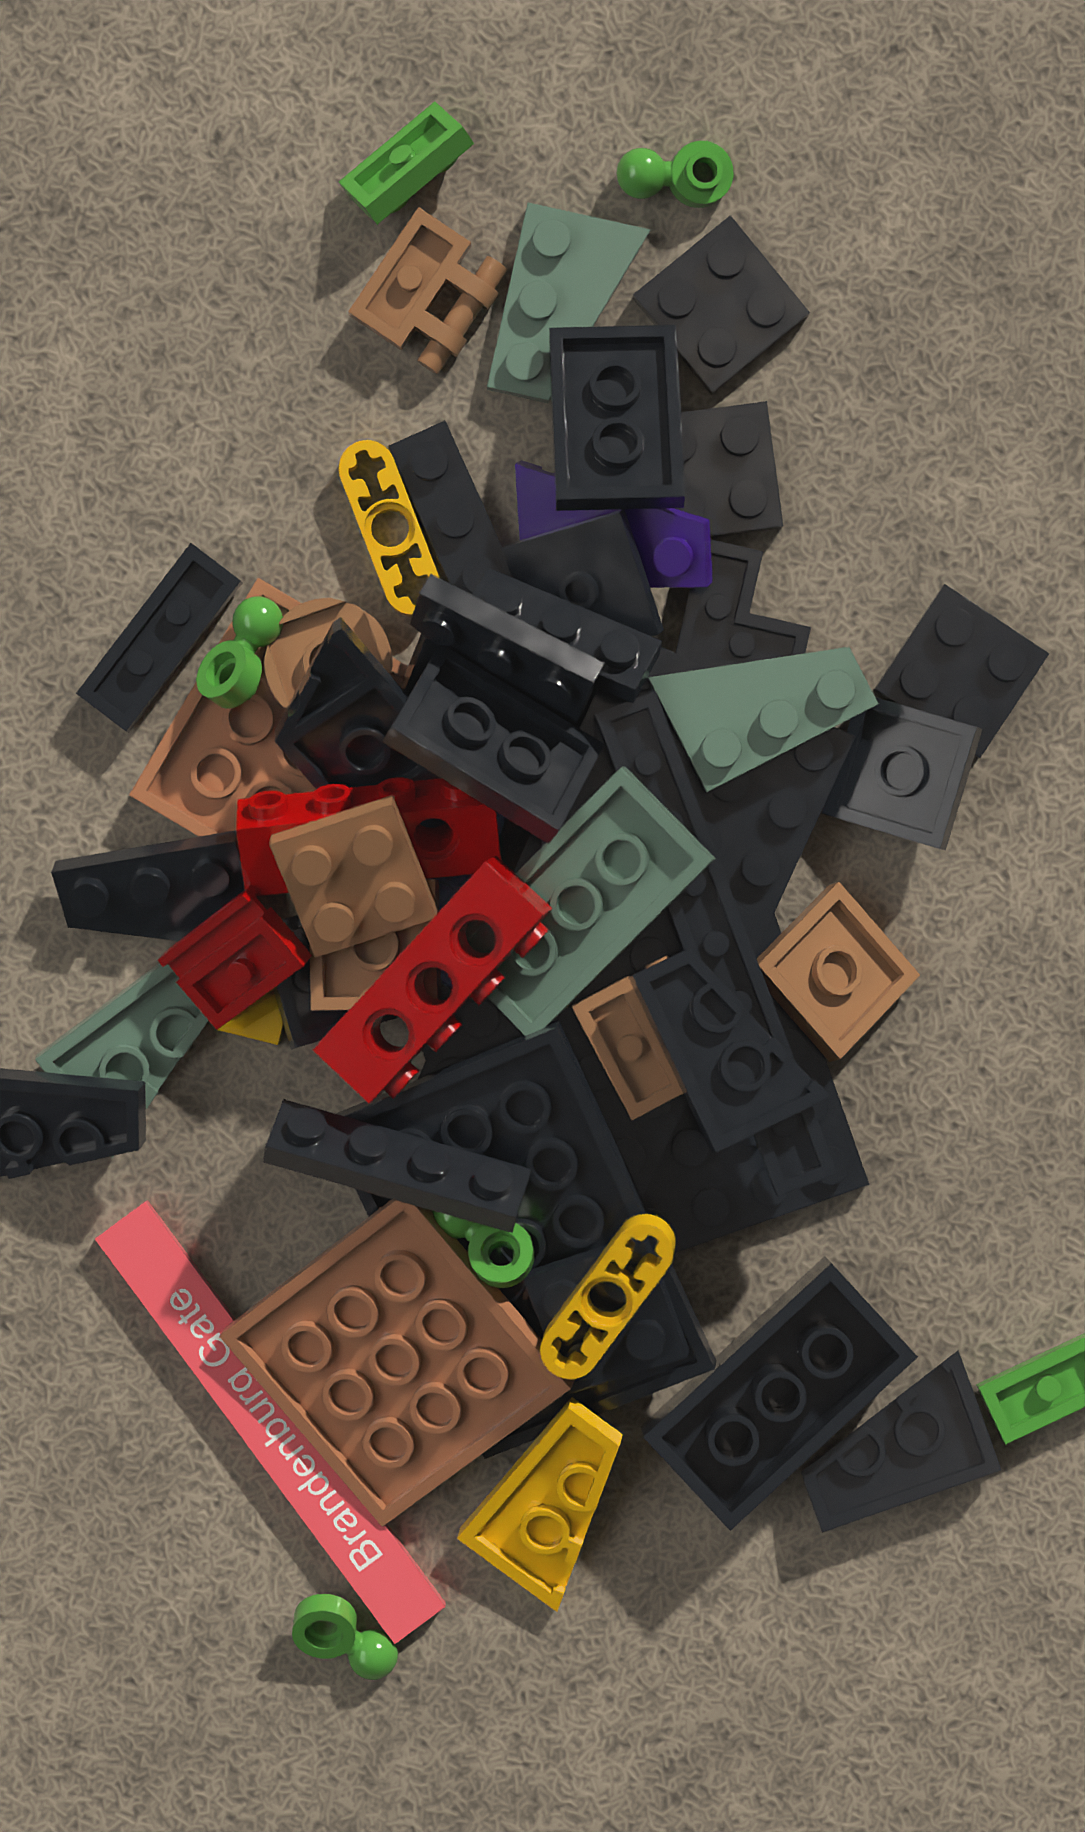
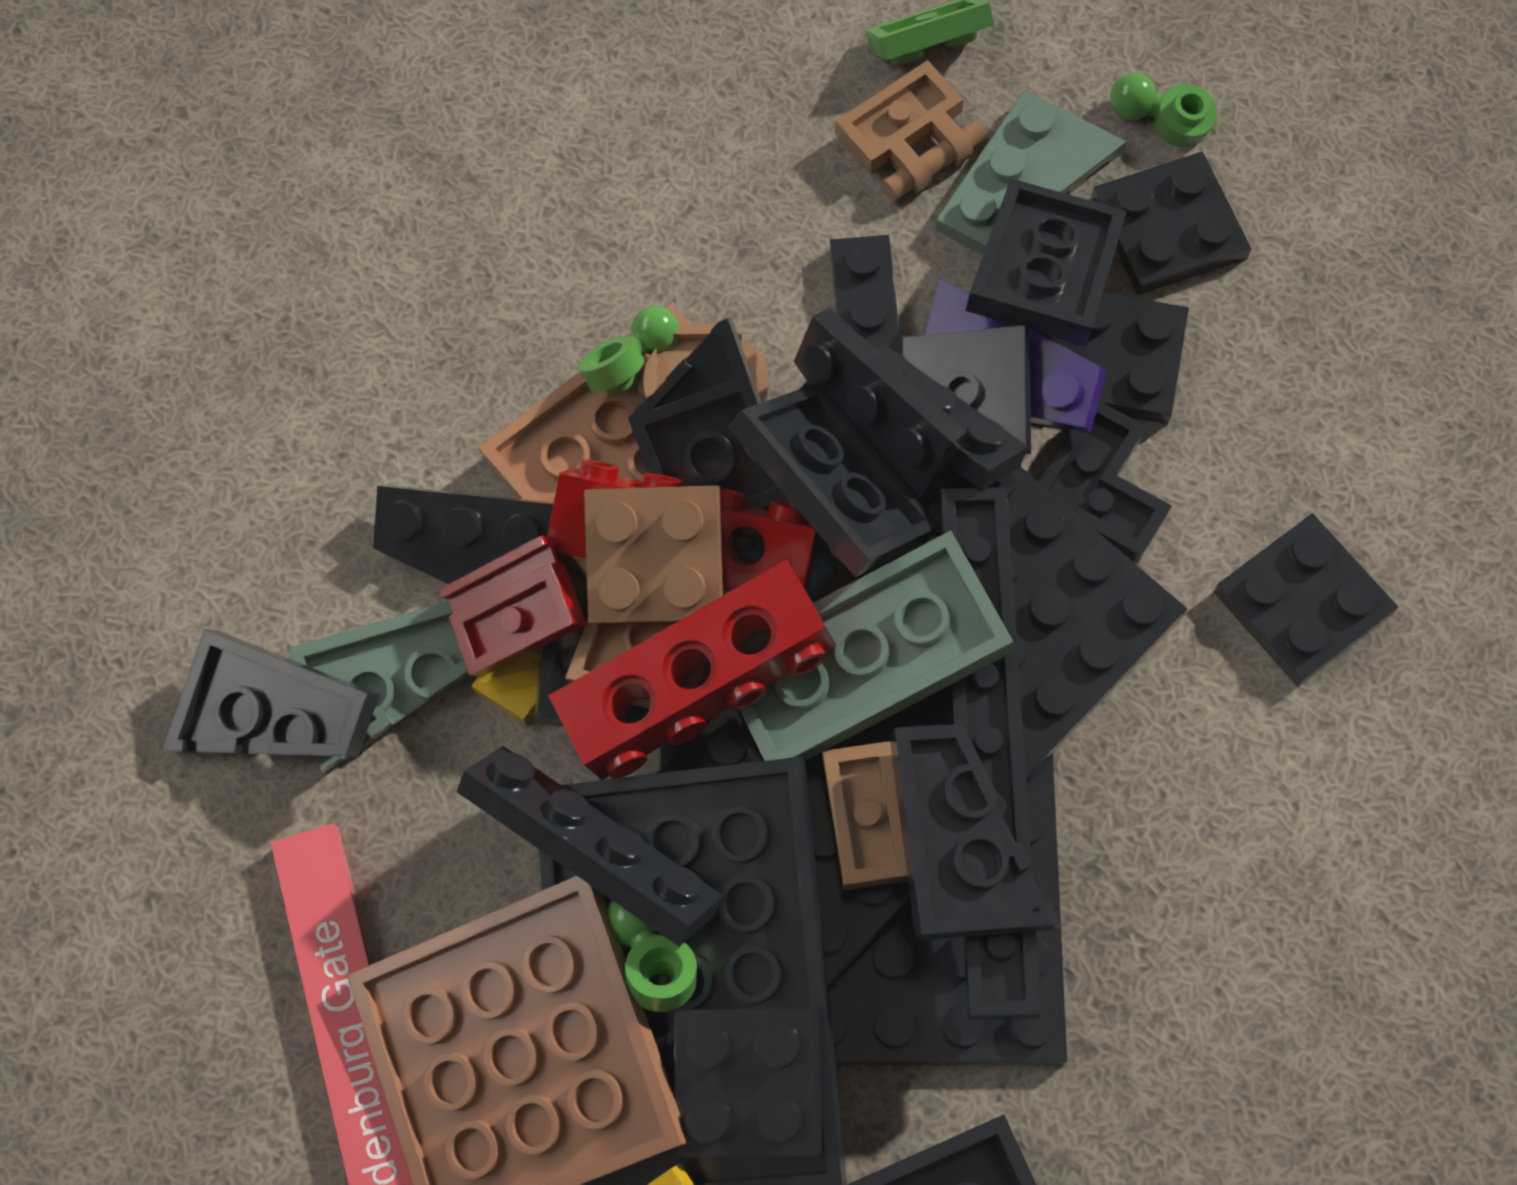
camera: 25 degrees right, 20 degrees down
(159, 637) = (560, 330): black plate -> none
(358, 490) = (792, 288): yellow beam -> none
(620, 1250) = (701, 1067): yellow beam -> none
(759, 709) = (1102, 545): sand green wing -> none
(835, 971) = (1098, 829): medium nougat plate -> none
(904, 773) = (1224, 663): black plate -> none

